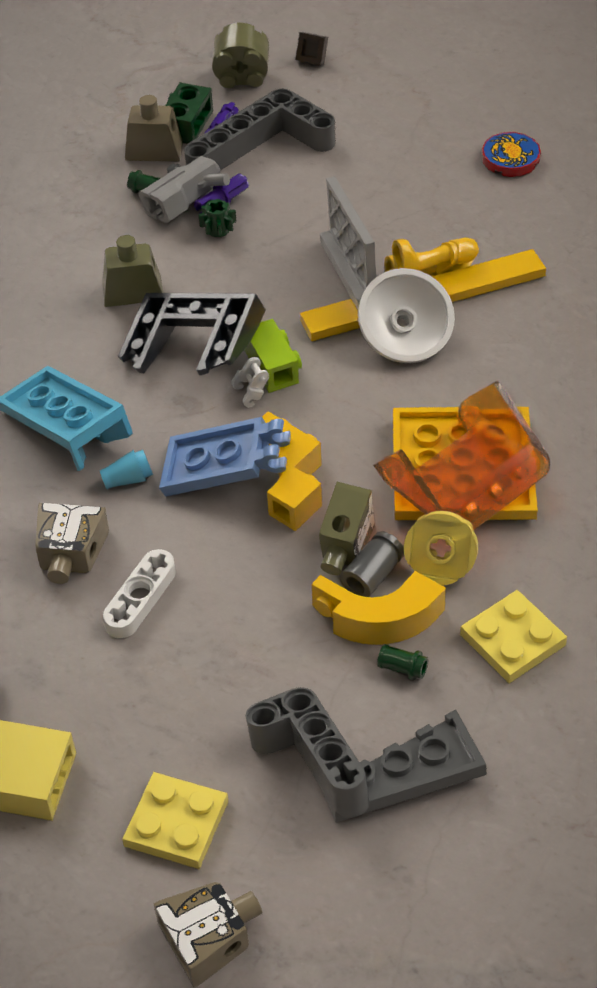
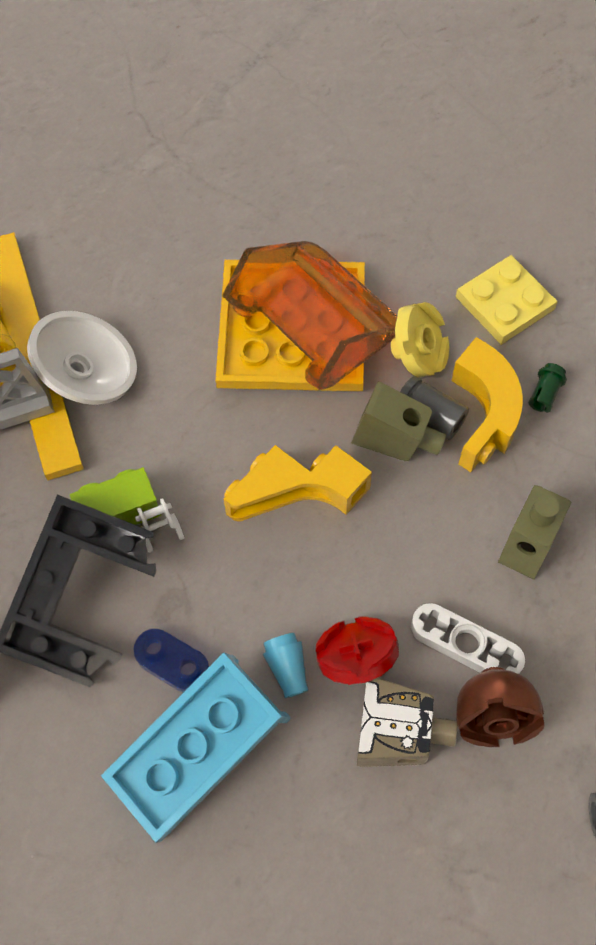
camera: 90 degrees left, 15 degrees up
(75, 596) = (498, 707): none -> copper cylinder
(132, 508) = (357, 650): none -> red tile
(142, 401) = (170, 659): none -> clear blue plate
(223, 455) = (282, 554): medium blue tile -> none
(241, 634) = (537, 526): none -> olive torso

